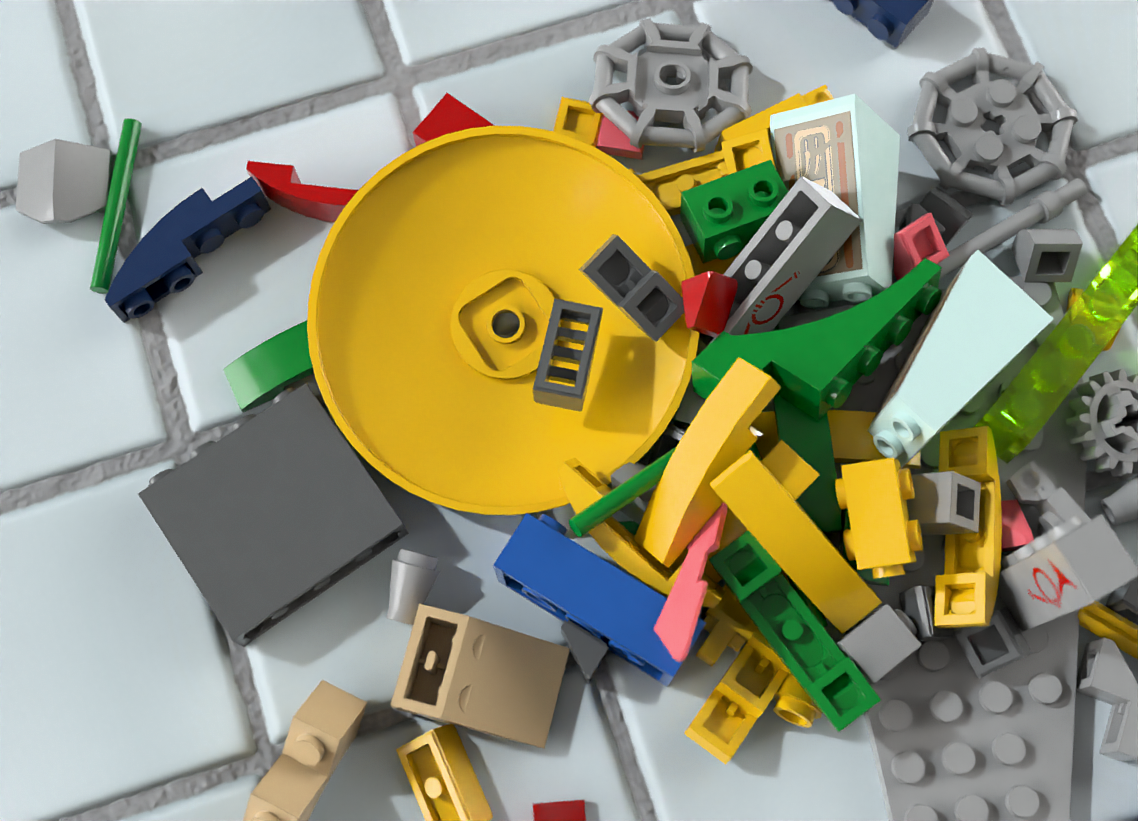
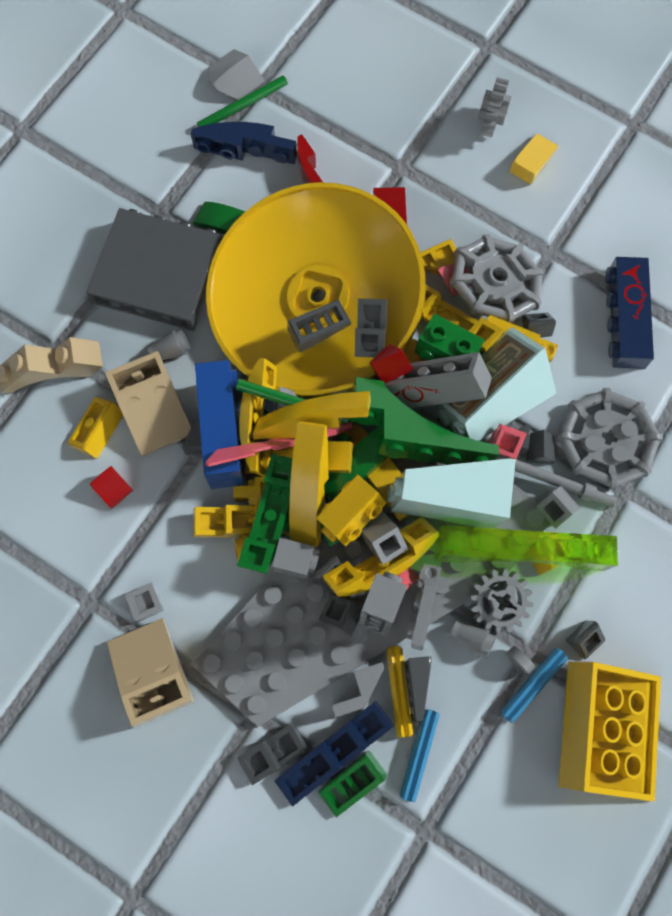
camera: 50 degrees right, 0 degrees up
(771, 84) = (539, 323): none -> dark grey slope

